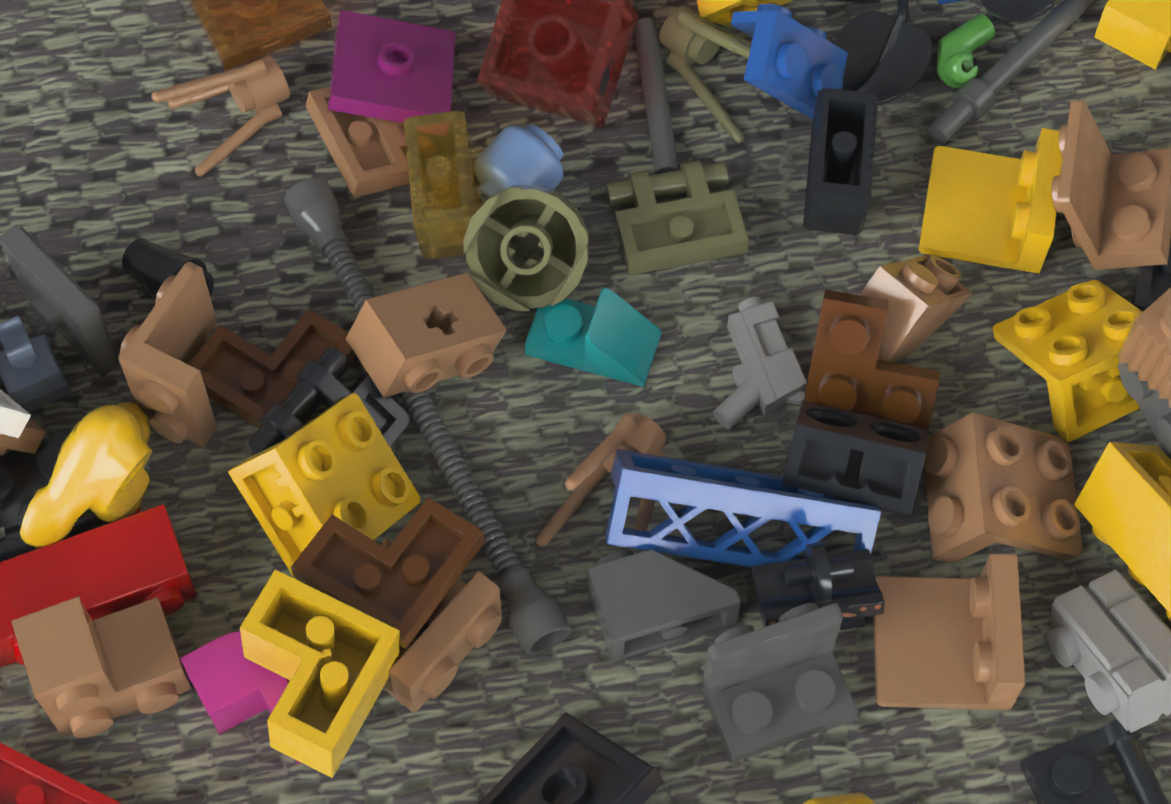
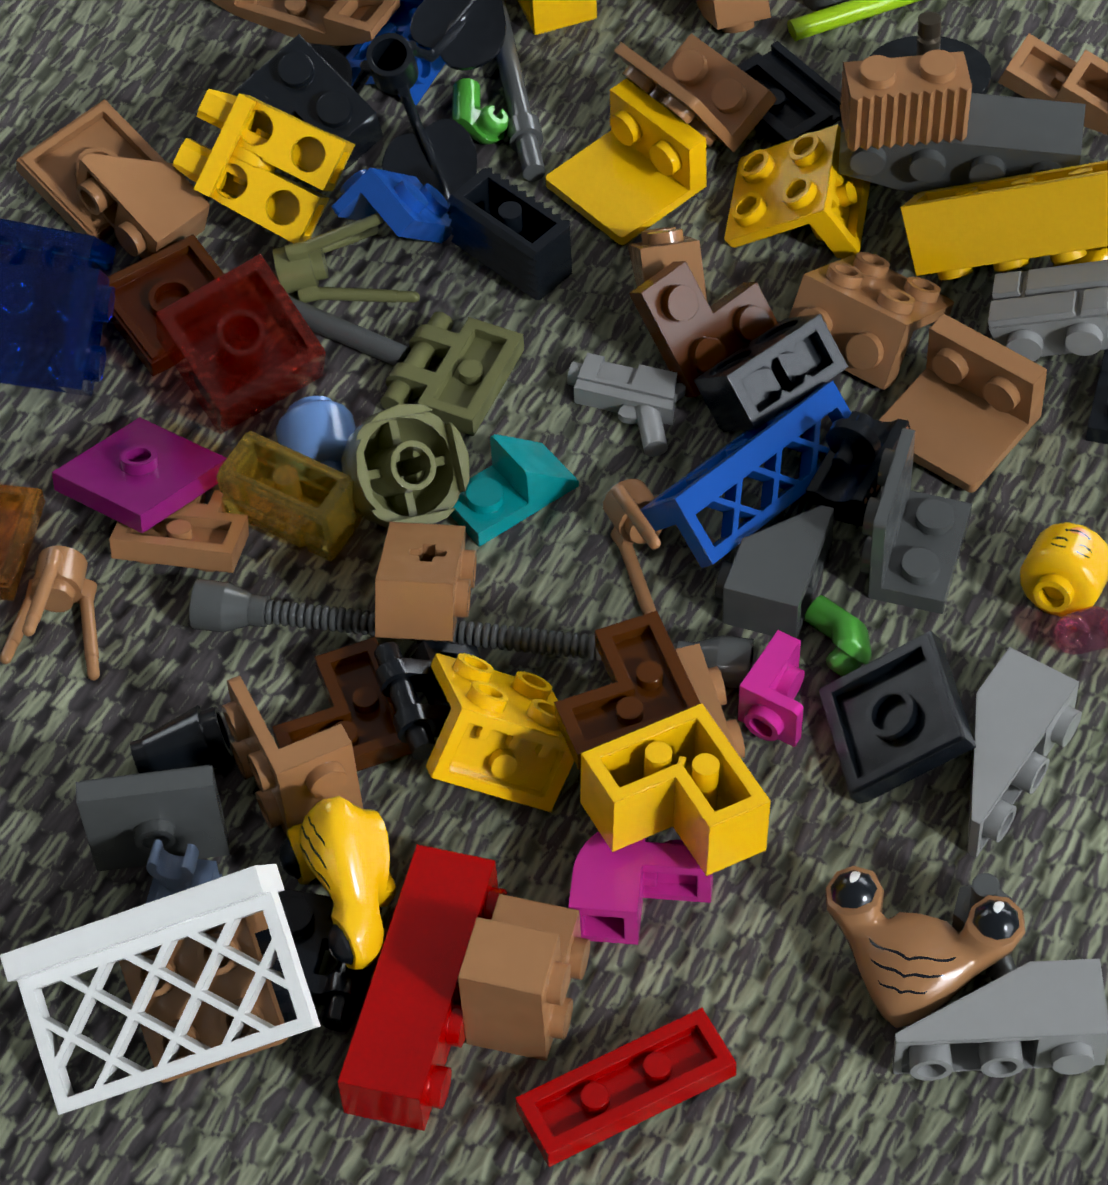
camera: 50 degrees left, 10 degrees down
(536, 668) = (769, 692): none -> dark pink bracket
(637, 702) = (846, 633): none -> bright green arm

